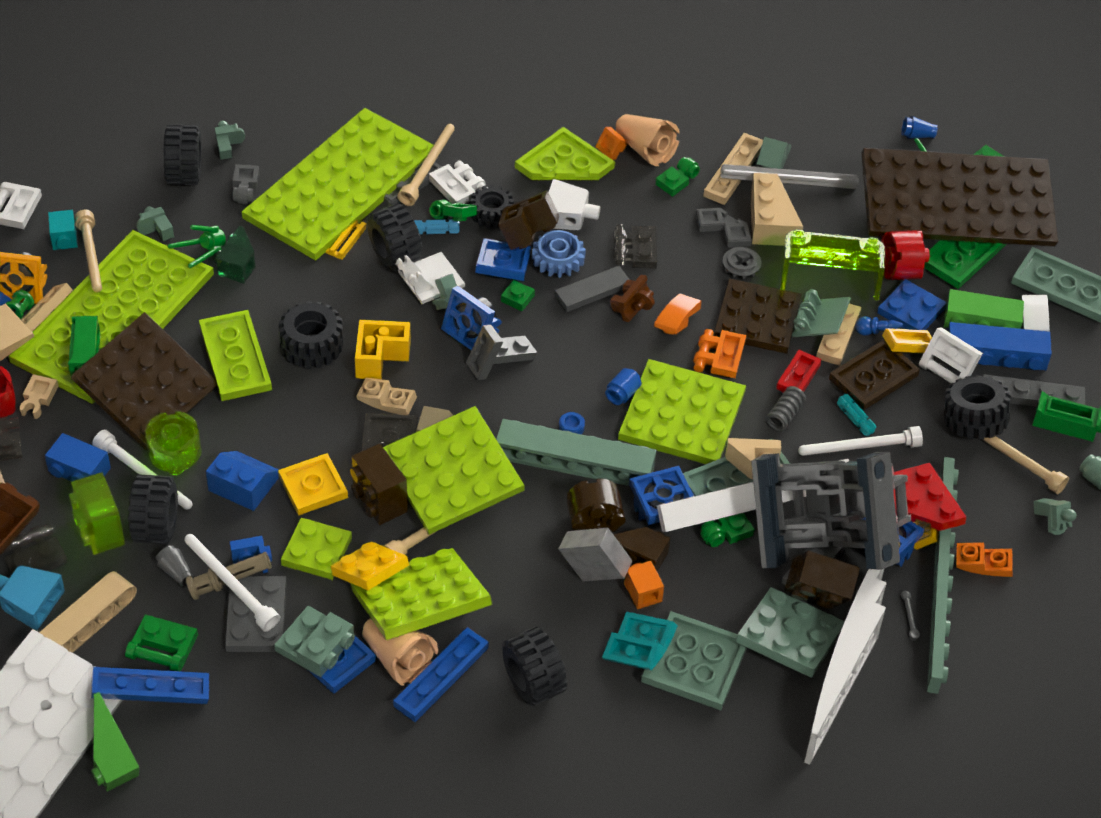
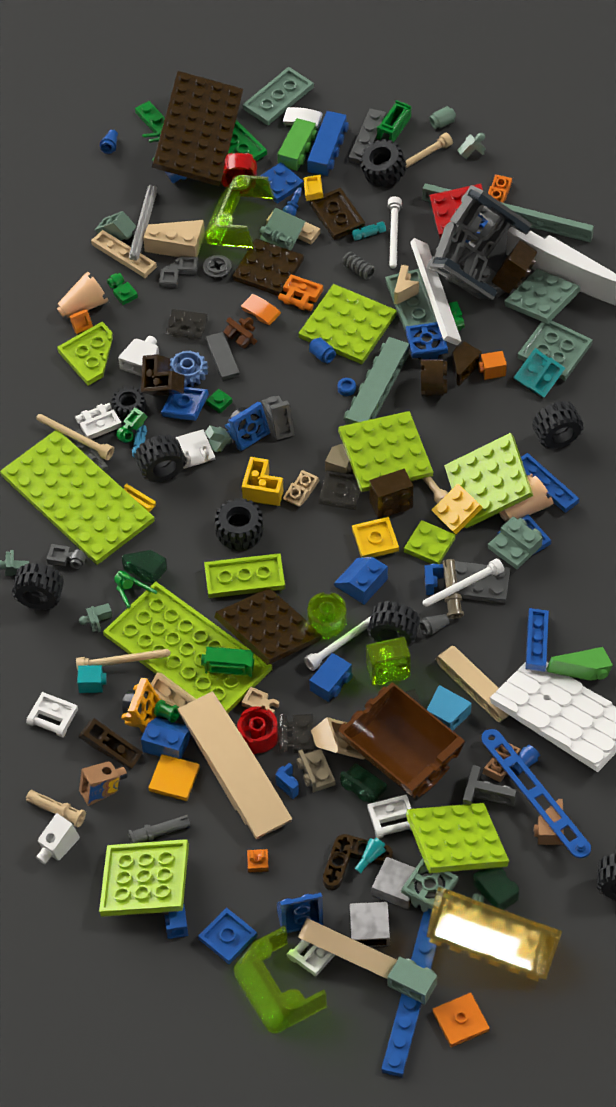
camera: 75 degrees left, 5 degrees up
(162, 636) = (490, 635): green plate -> none
(595, 554) = (475, 380): flat silver piece -> none
(799, 371) = (328, 253): red plate -> none
(953, 352) = (334, 164): white plate -> none

